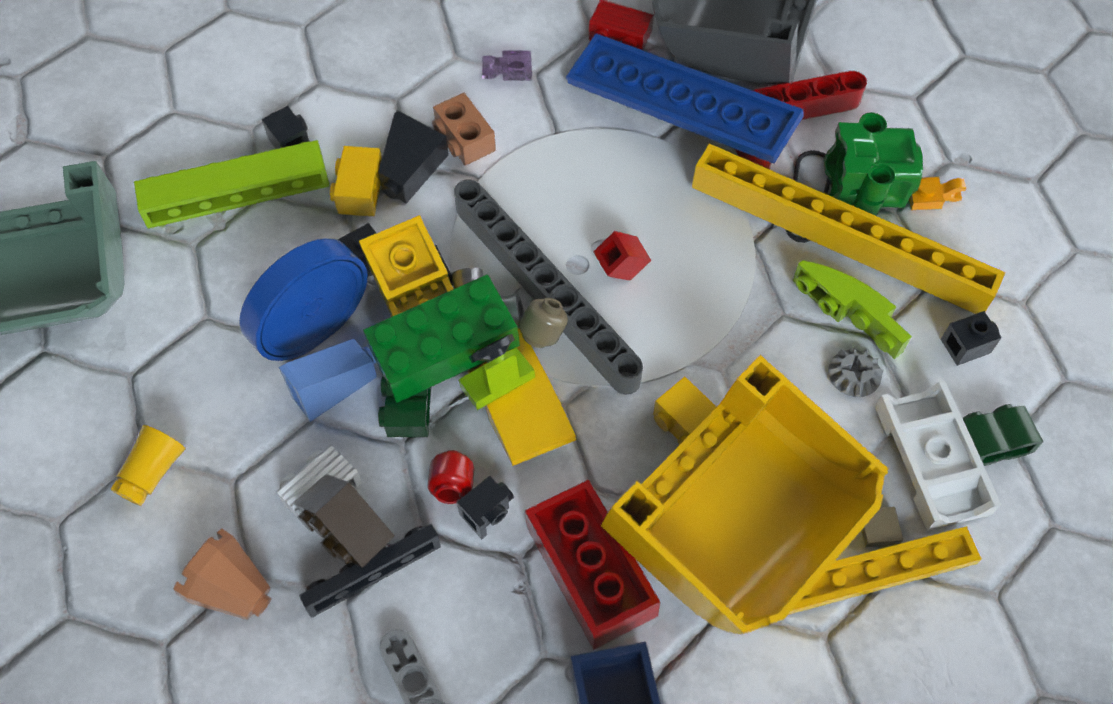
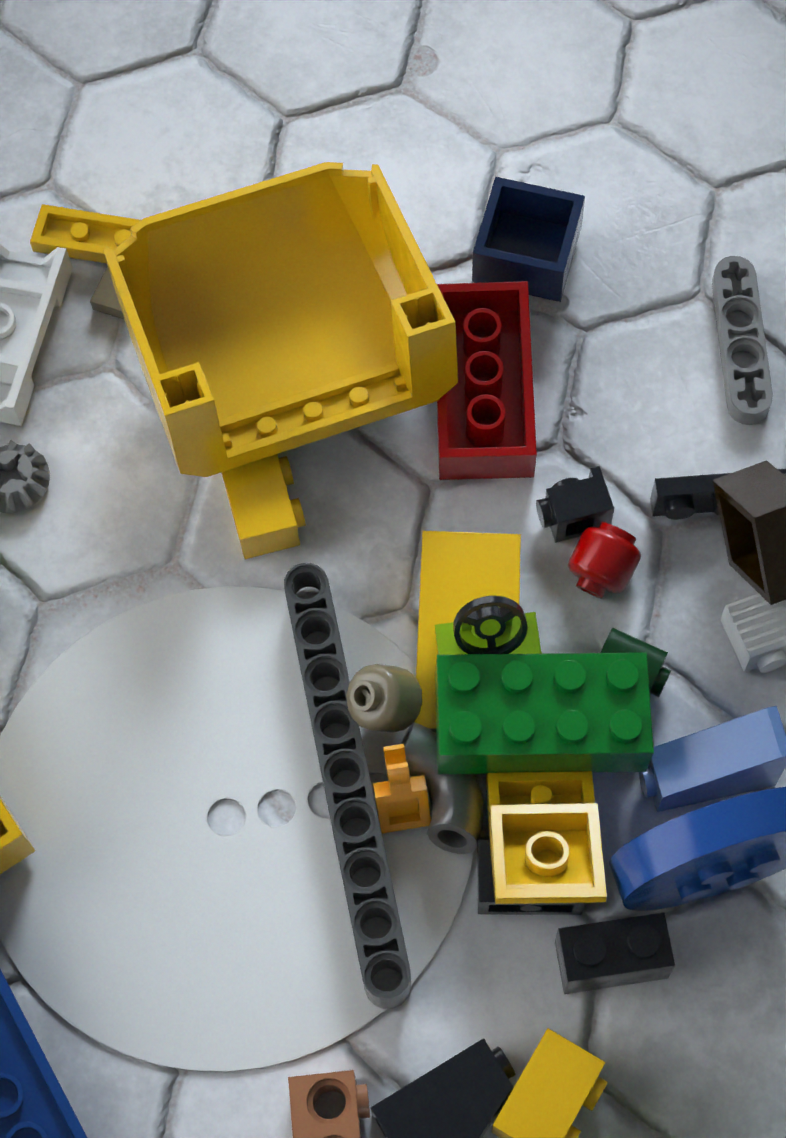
camera: 150 degrees left, 5 degrees up
(510, 282) = (402, 799): none -> light orange plate
(622, 256) = (214, 758): red brick -> none

